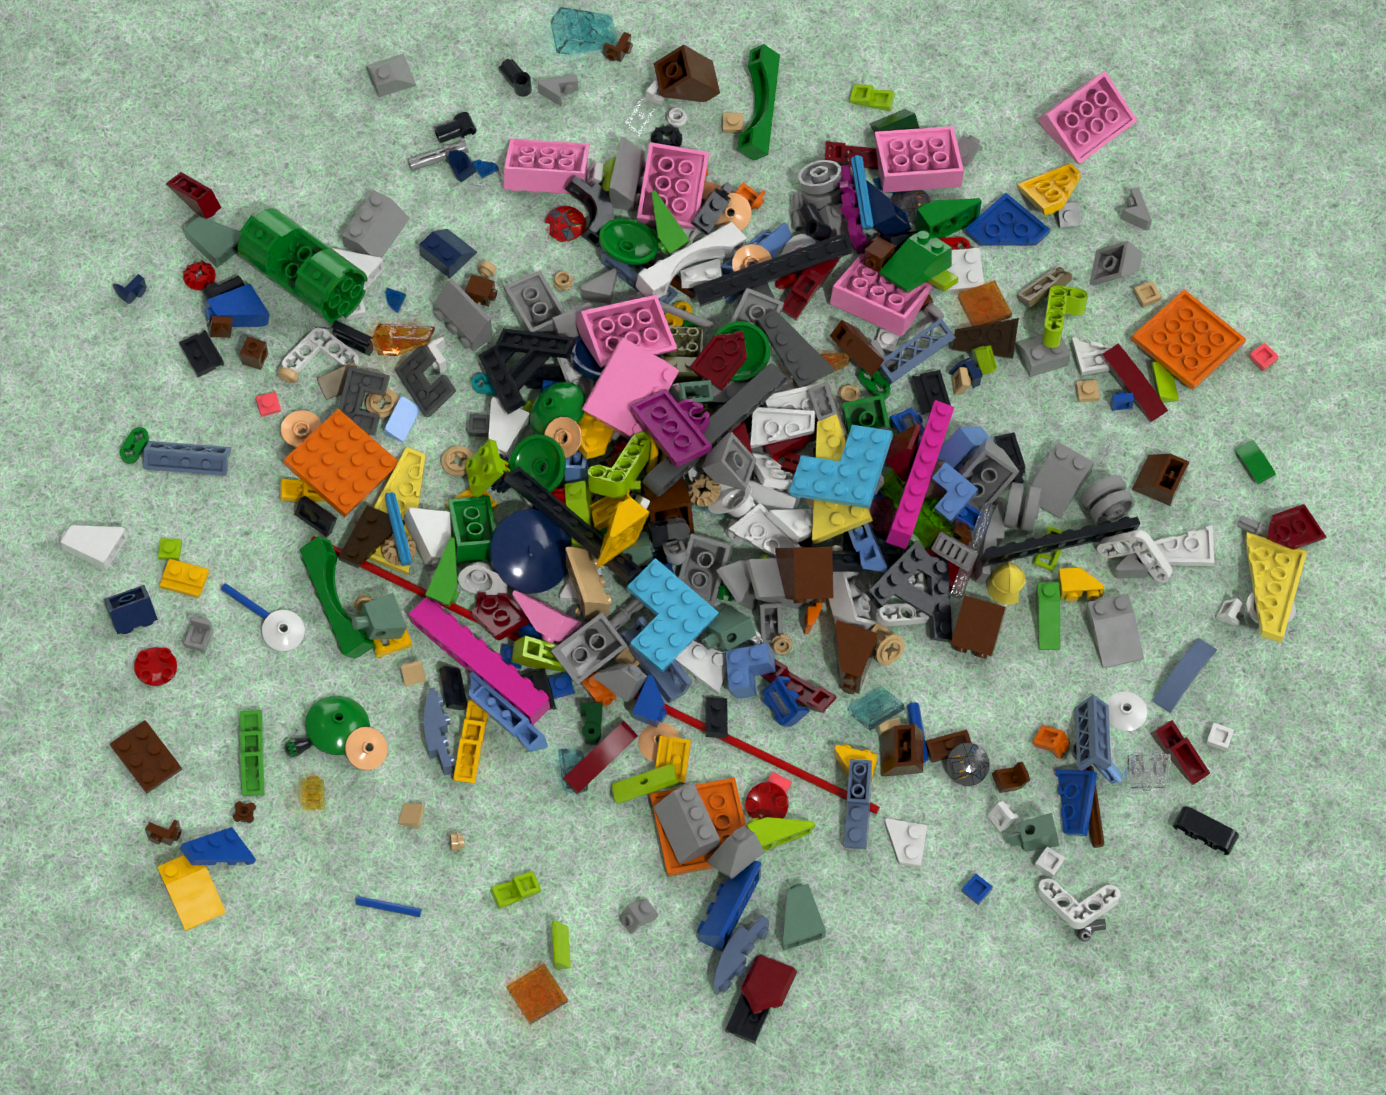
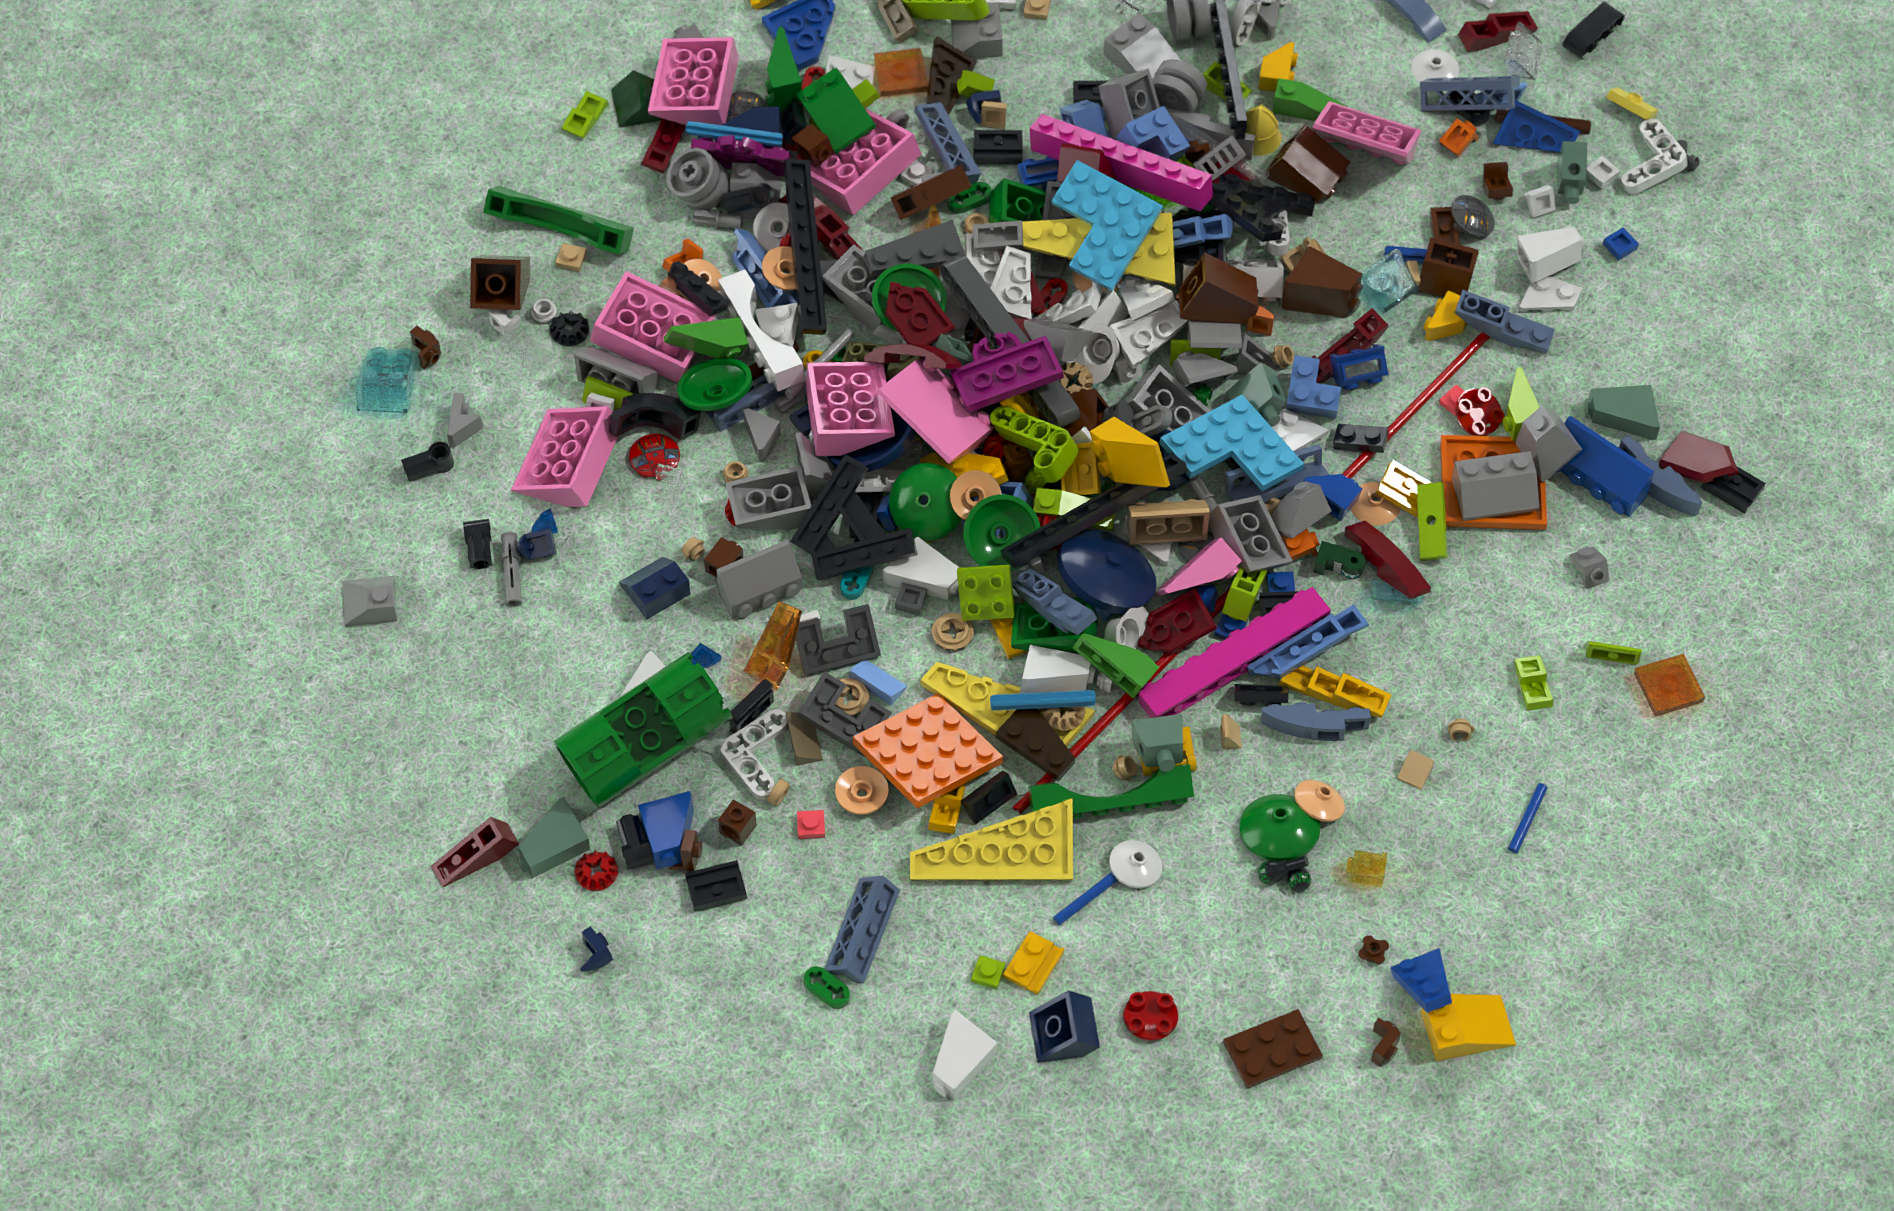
camera: 75 degrees left, 5 degrees down
(199, 634) = (1120, 956): light grey bracket -> none
(252, 752) = (1297, 927): bright green slope -> none
(272, 542) = (1015, 849): none -> light yellow wing
(295, 727) = (1273, 871): none -> black piece
(375, 226) = (593, 657): light grey slope -> none
(484, 516) = (1052, 603): none -> sand blue slope
(676, 364) = (934, 356): none -> dark red slope
(944, 829) = (1549, 251): none -> white slope
(1016, 659) = (1367, 133): none -> bright pink slope
(1114, 630) = (1340, 50): light grey slope -> none
(1134, 875) = (1632, 102): none -> light yellow plate

